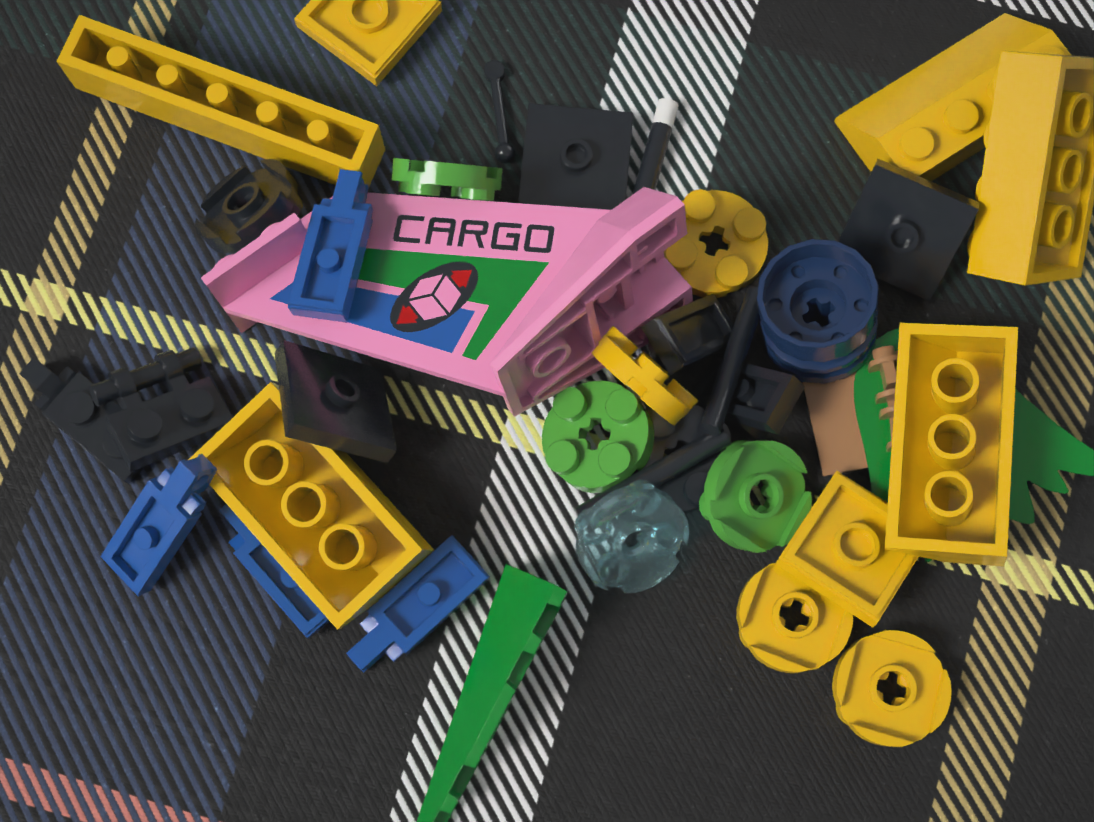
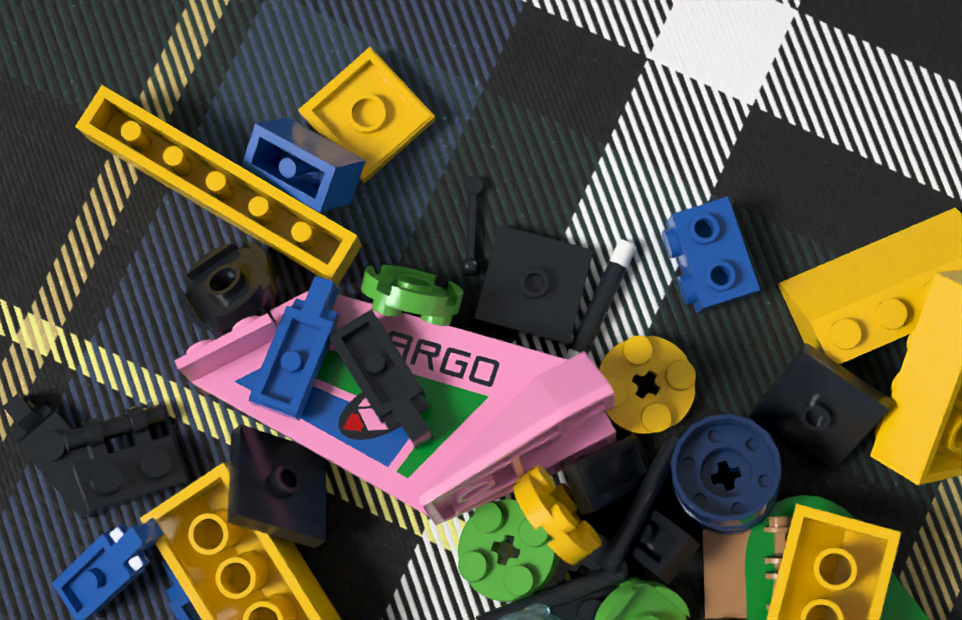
camera: 10 degrees right, 5 degrees up
(309, 66) = (303, 164): none -> blue brick
(432, 259) = (383, 376): none -> black hinge
(758, 97) = (710, 255): none -> blue brick

